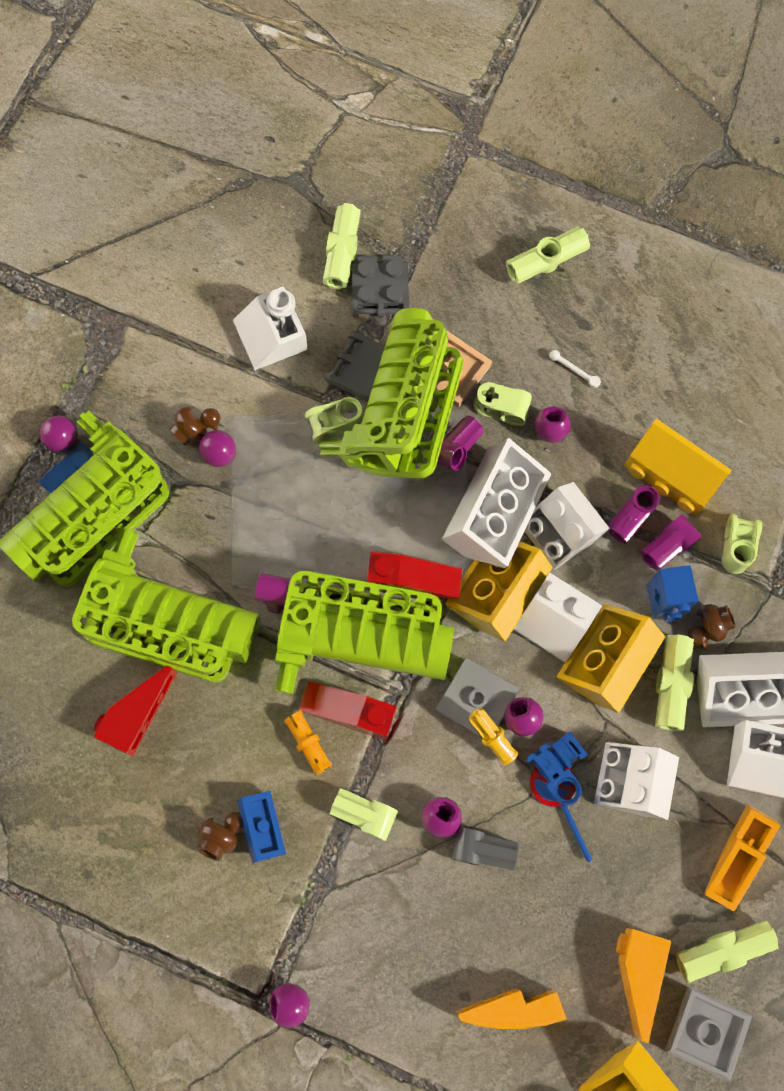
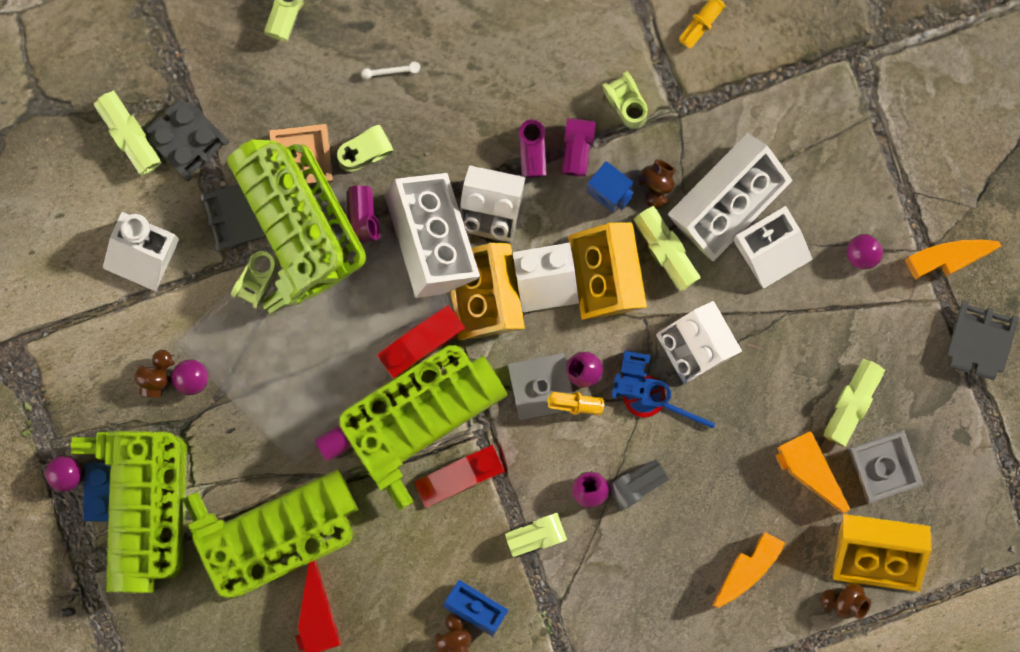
camera: 35 degrees left, 10 degrees up
(308, 743) = (453, 524): light orange pin -> none
(552, 424) = (414, 134): magenta piece -> none
(676, 468) = (533, 89): yellow slope -> none
(741, 857) = (812, 329): light orange slope -> none

